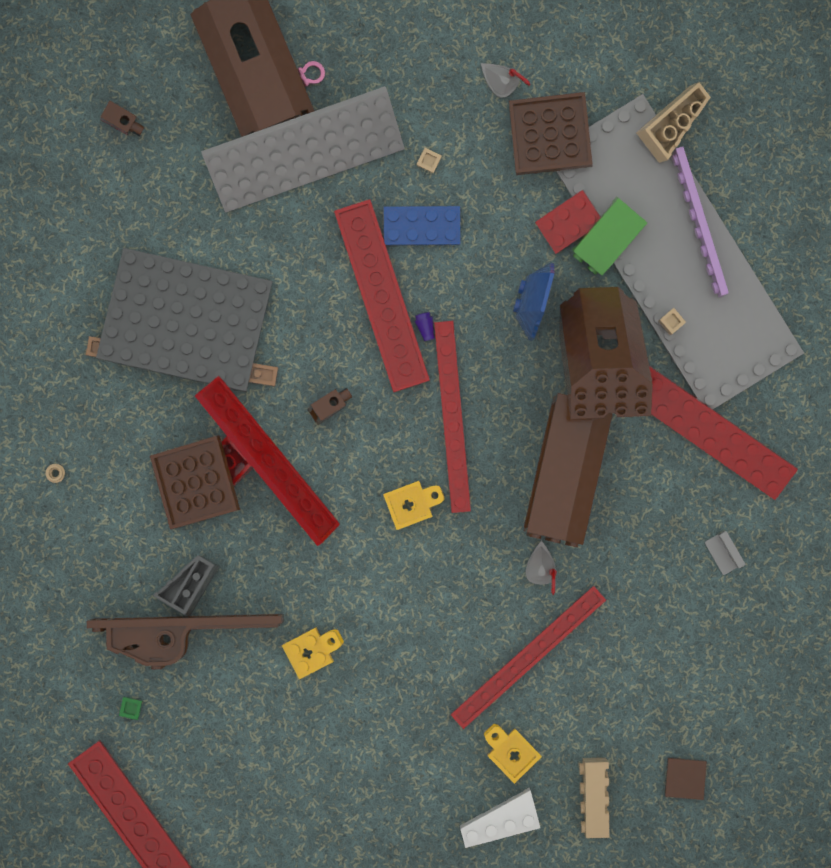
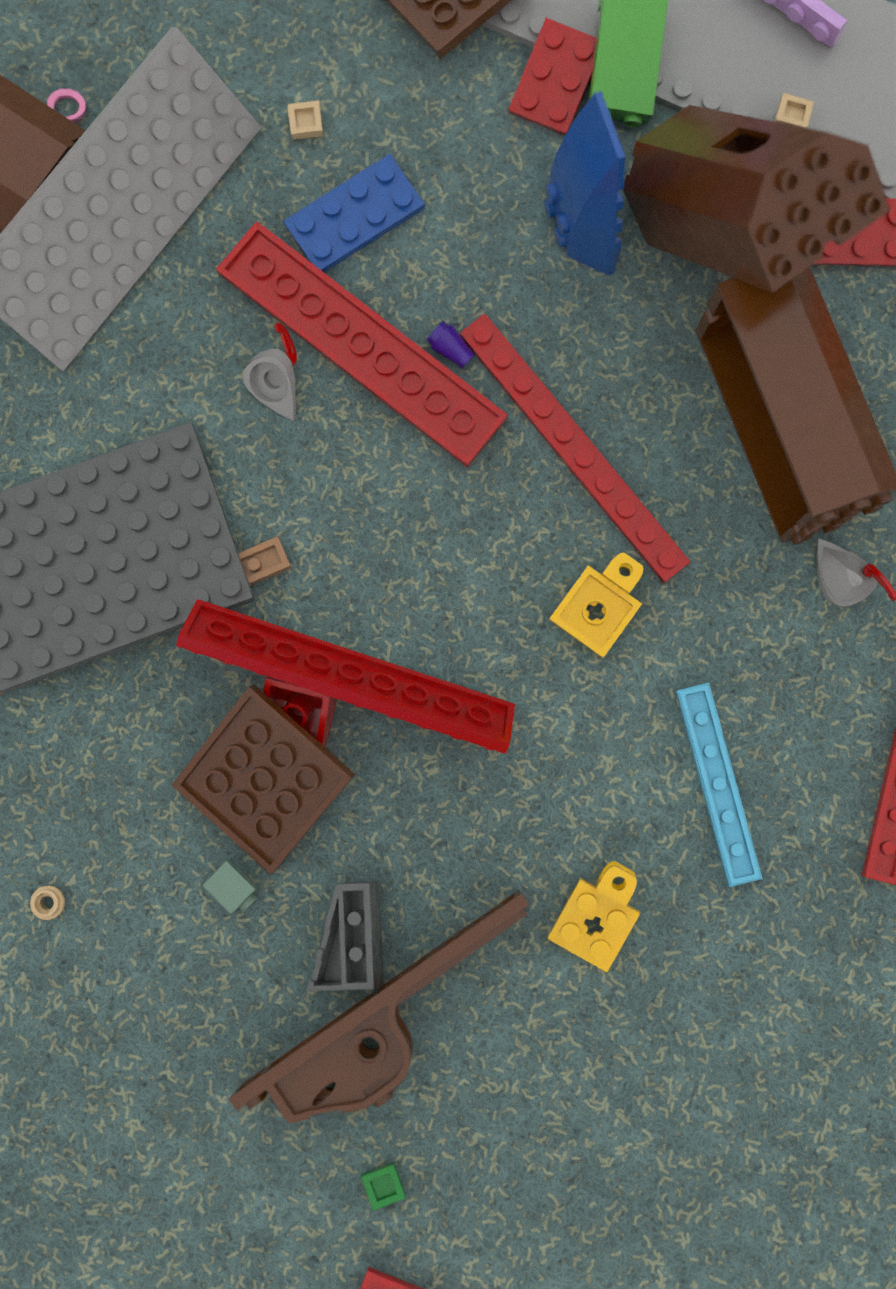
camera: 30 degrees left, 5 degrees down
(147, 524) = (232, 887): none -> sand green brick
(322, 409) = (386, 542): reddish brown torso -> none
(326, 284) = (272, 377): none -> light grey piece
(412, 626) = (718, 785): none -> medium azure tile

